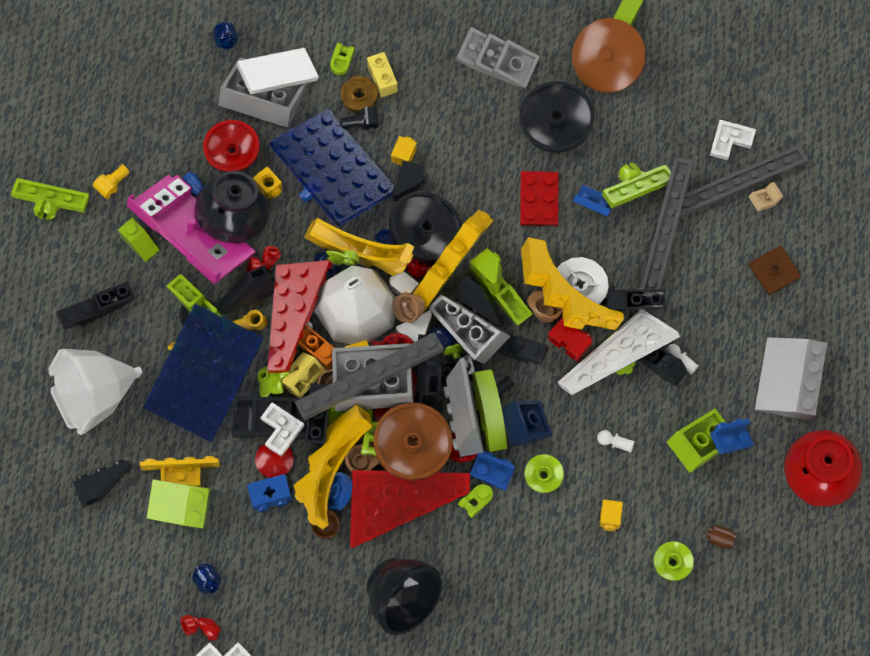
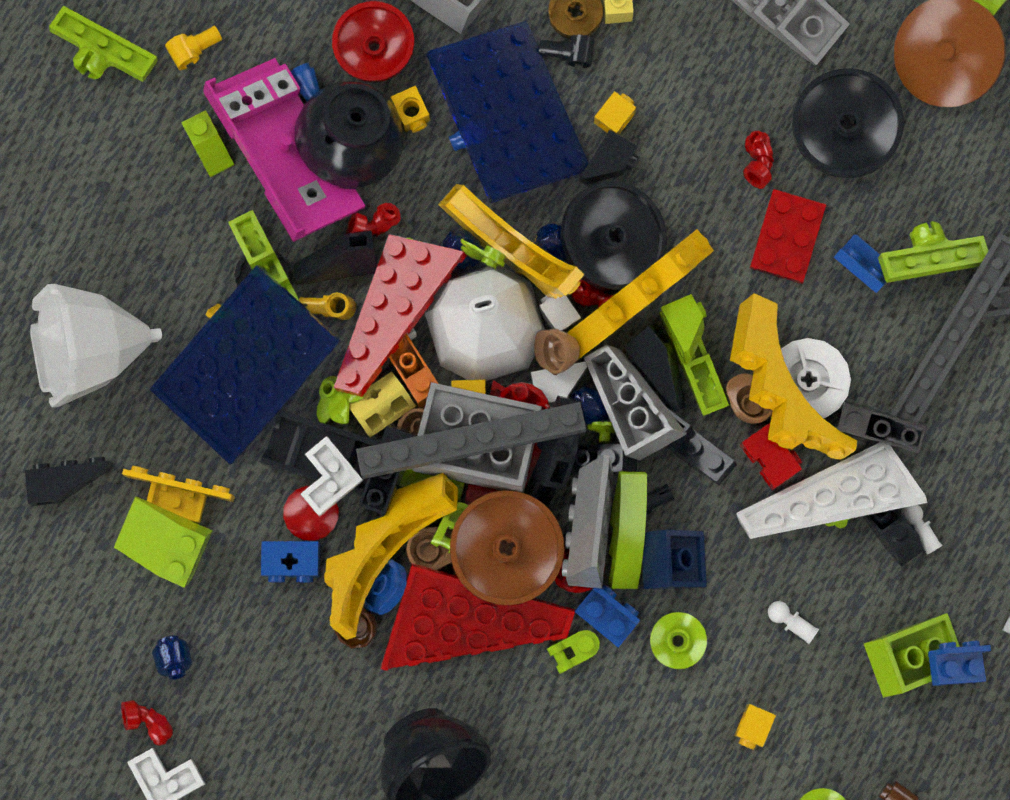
camera: 20 degrees right, 10 degrees up
(95, 307) = (123, 225): black slope -> none
(508, 160) = (759, 148): none -> red arm

